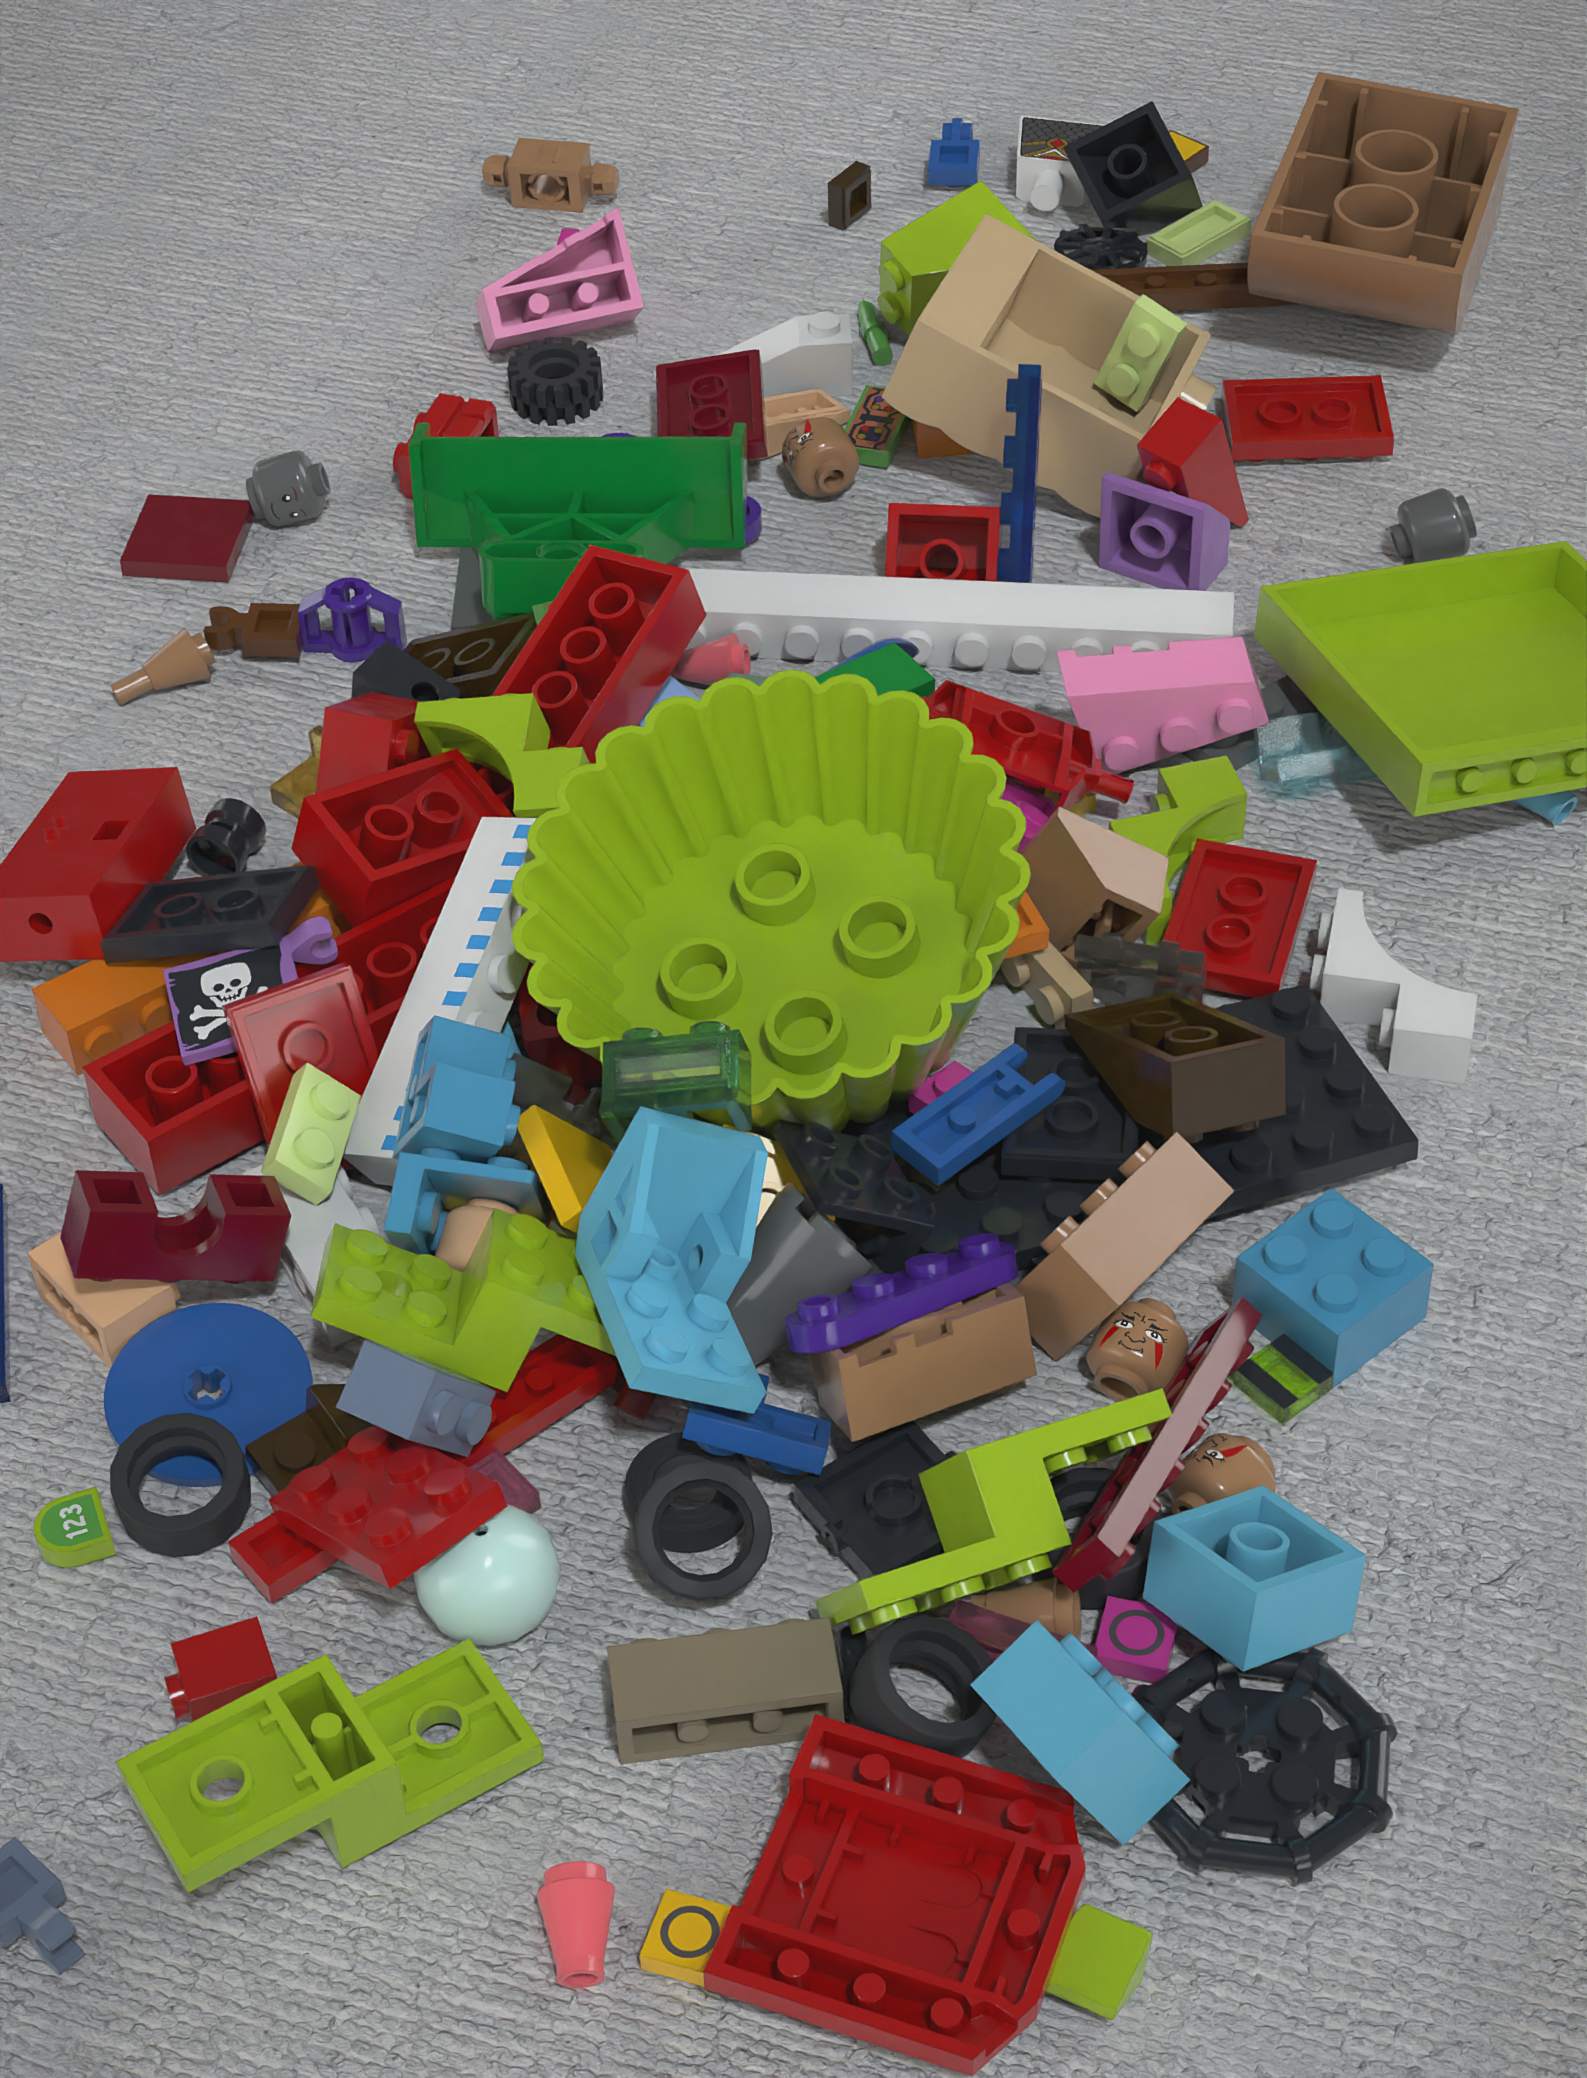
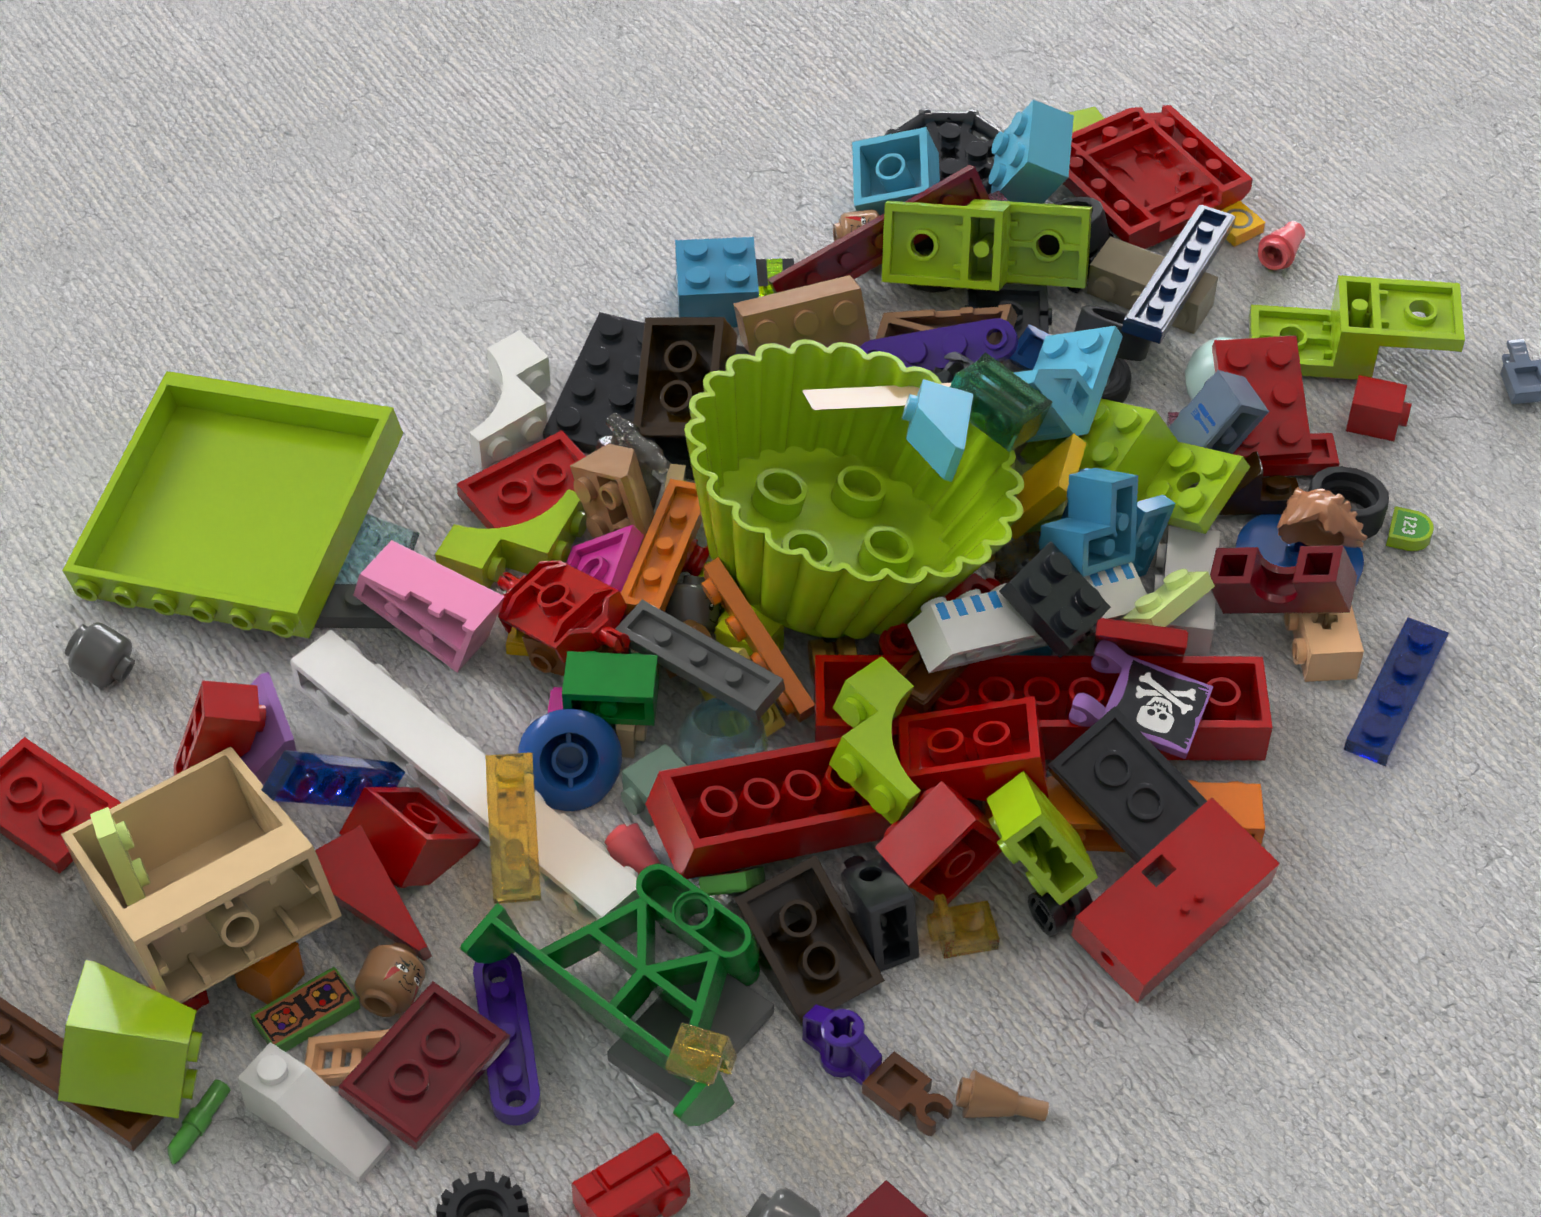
camera: 145 degrees left, 5 degrees up
(179, 1360) = (1320, 520): none -> nougat hair
(254, 785) = (1040, 839): none -> lime brick
(425, 972) = (1055, 599): none -> black plate
(440, 463) = (700, 1054): none -> clear yellow bracket
(671, 1669) = (1178, 274): none -> tile
(704, 968) = (939, 425): none -> medium azure slope
(831, 560) = (513, 828): none -> clear yellow slope
(839, 1032) = (860, 397): none -> sticker
(914, 471) = (366, 889): none -> red slope

